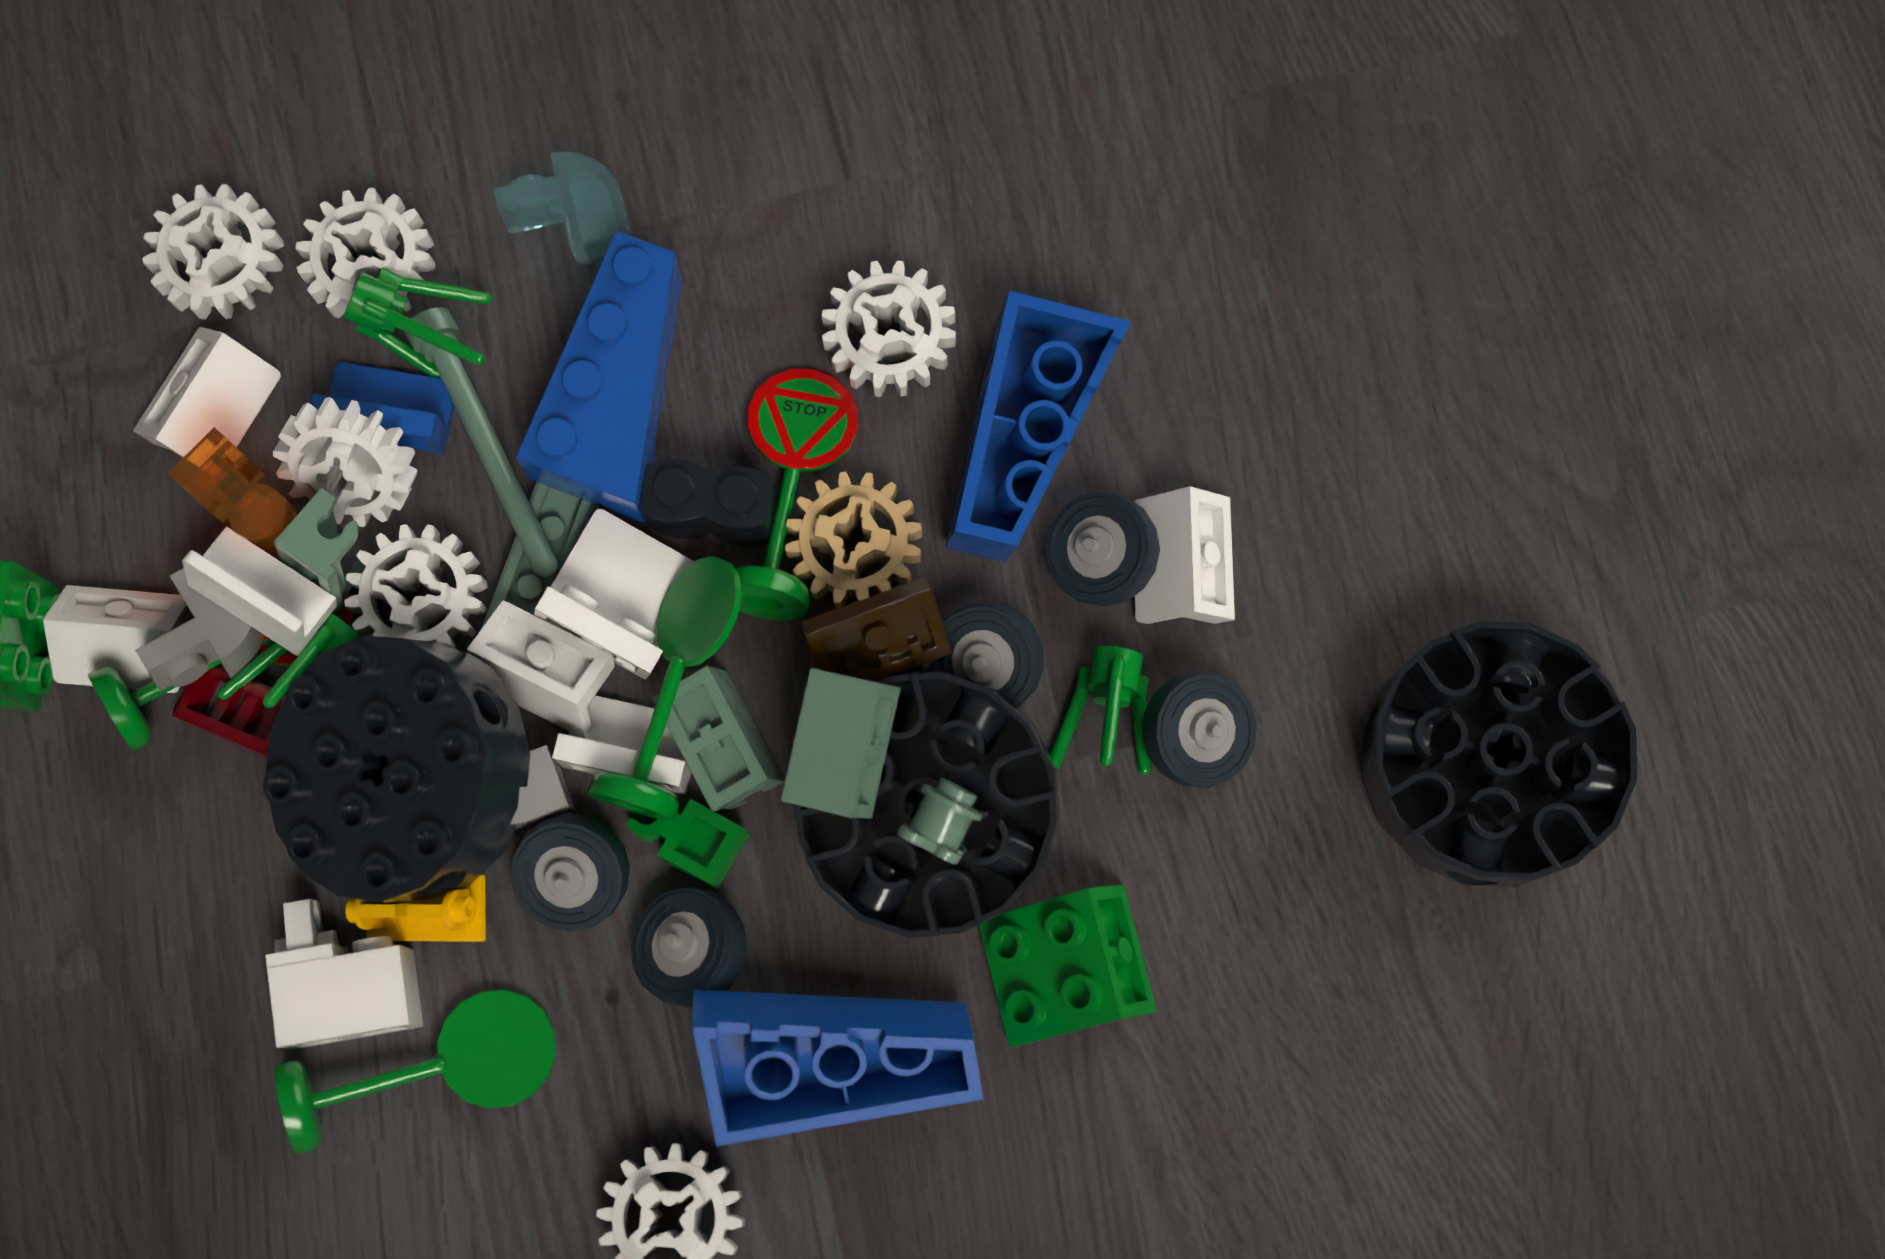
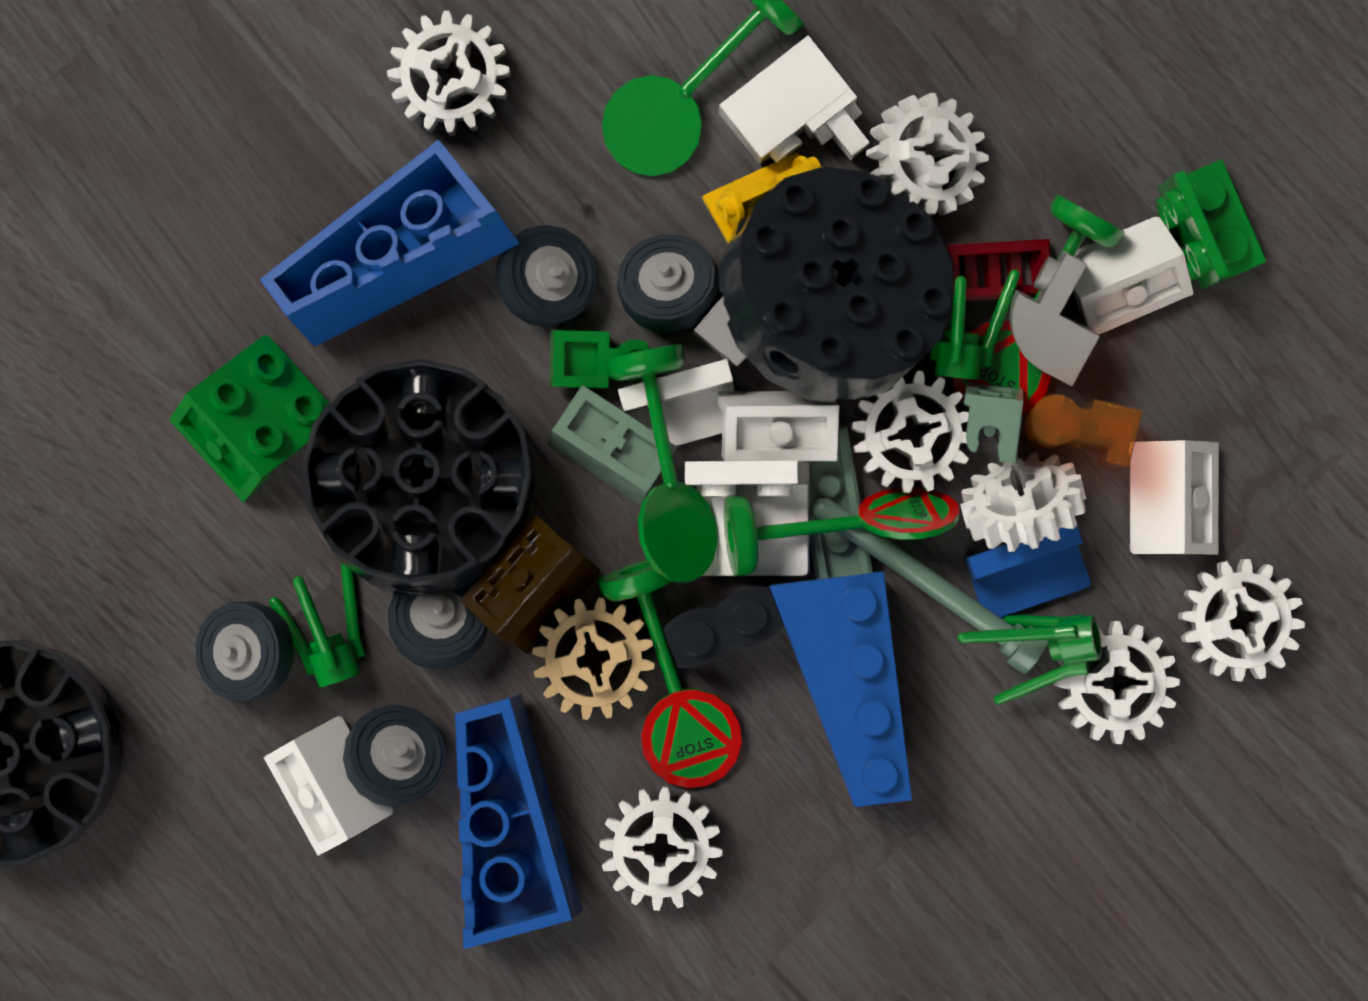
camera: 150 degrees right, 10 degrees up
(231, 861) = (941, 138): none -> white gear
(259, 590) = (1019, 362): white panel -> none
(486, 527) = (883, 513): none -> green piece
(578, 195) = (967, 827): clear light blue brick -> none
(840, 744) = (499, 477): sand green hinge -> none
(942, 820) = (392, 460): sand green brick -> none

